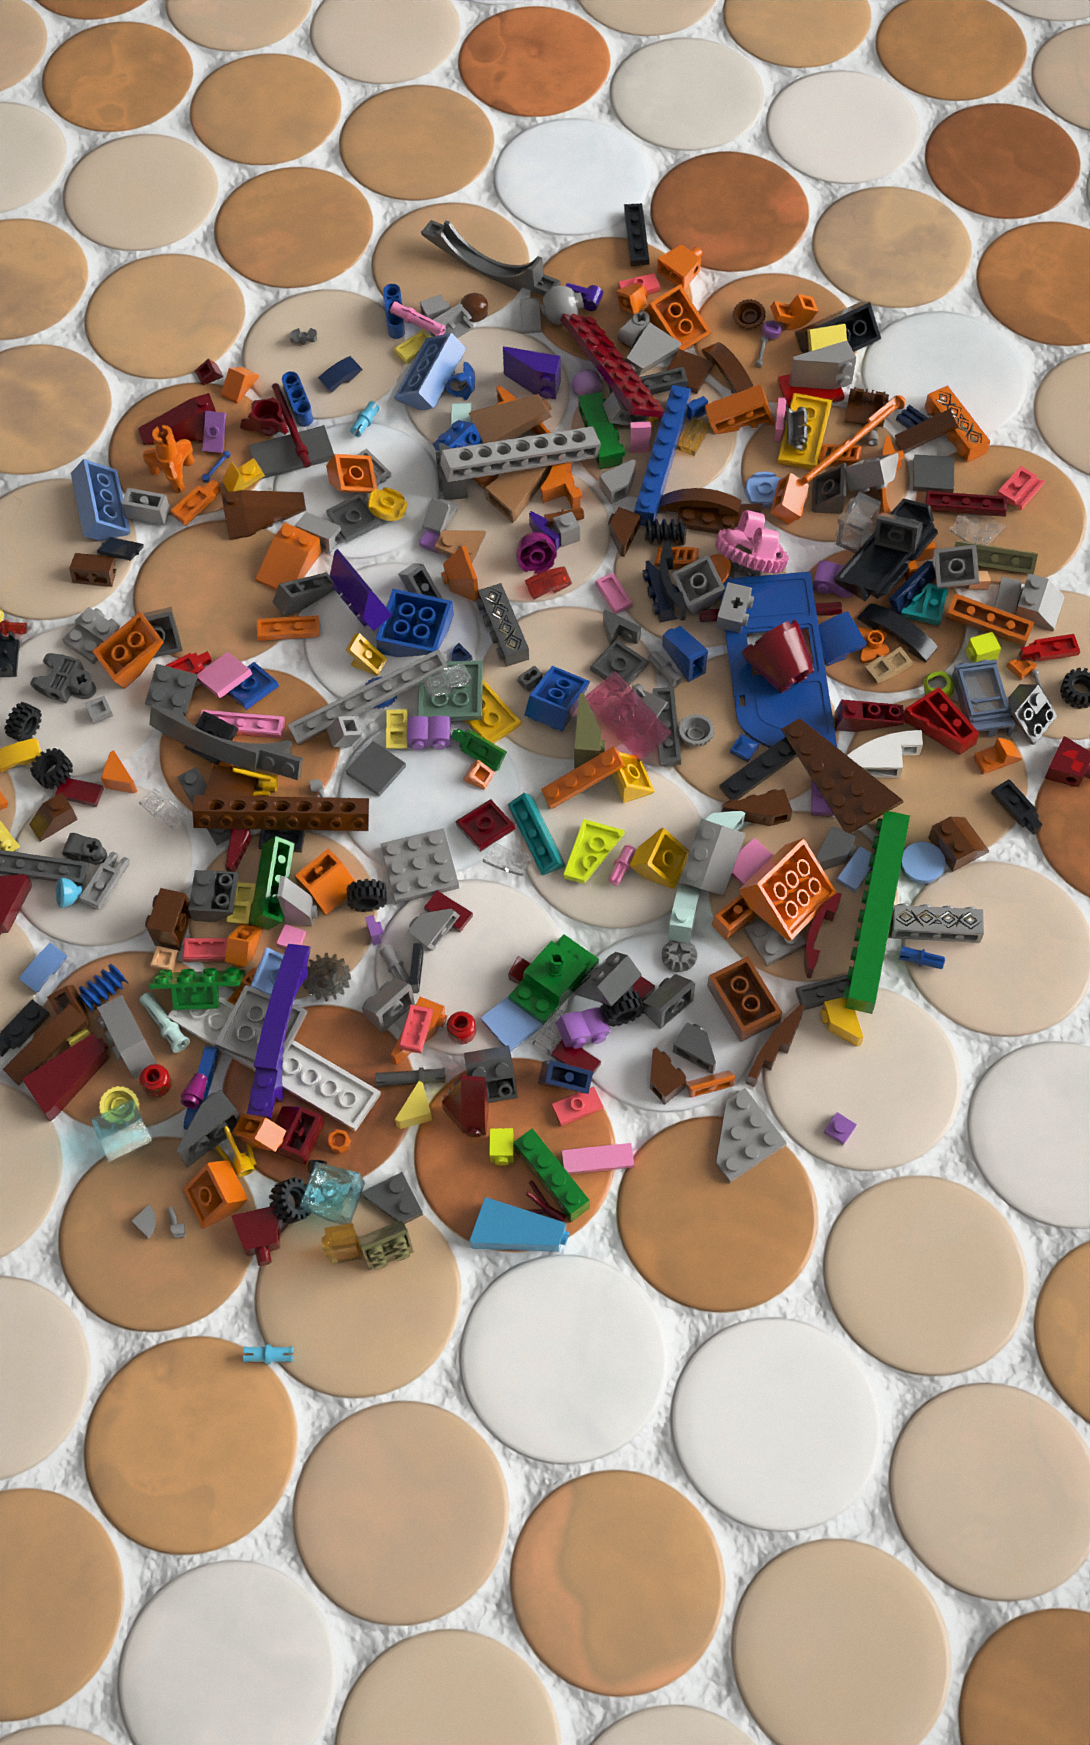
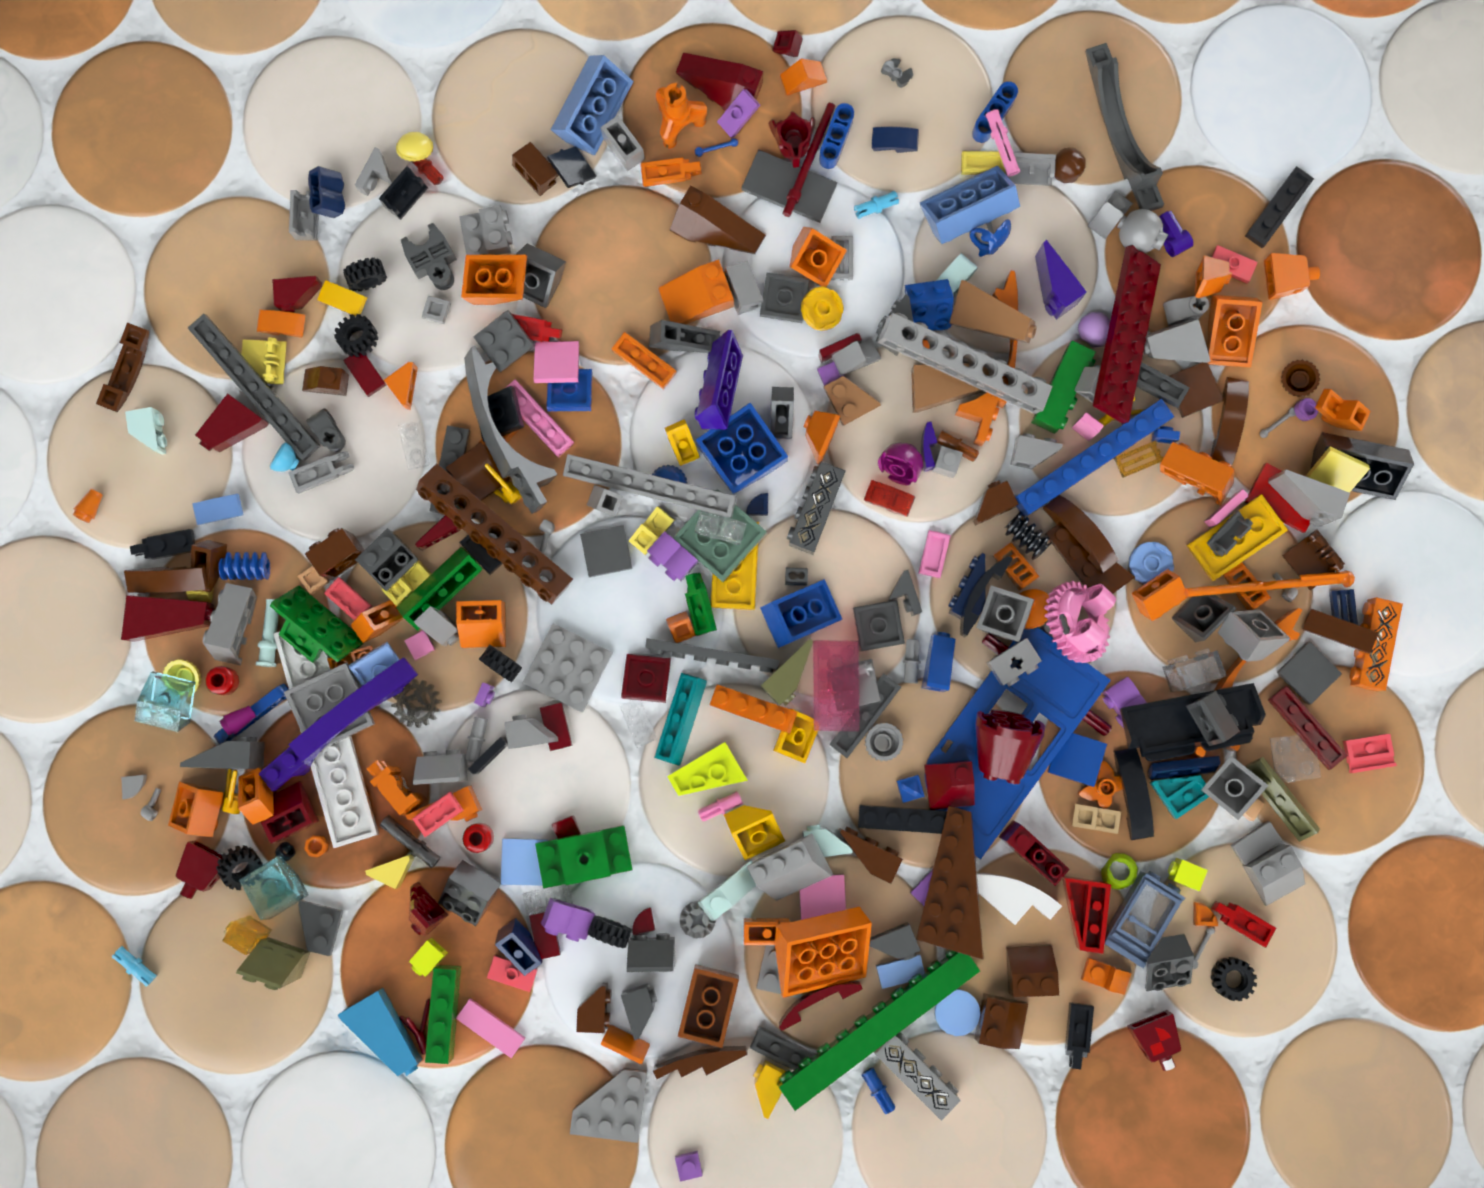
camera: 40 degrees right, 20 degrees up
(242, 477) = (726, 178): yellow slope -> none
(364, 1043) = (395, 788): none -> orange hips
(416, 525) = (826, 352): none -> dark red tile
(434, 307) = (1030, 140): light grey brick -> none
(512, 775) = (722, 657): none -> dark grey plate
(609, 979) = (613, 903): dark grey slope -> none
(767, 717) = (950, 784): none -> dark red slope
(946, 792) = (1032, 971): none -> reddish brown slope
(990, 619) = (1217, 856): orange brick -> none

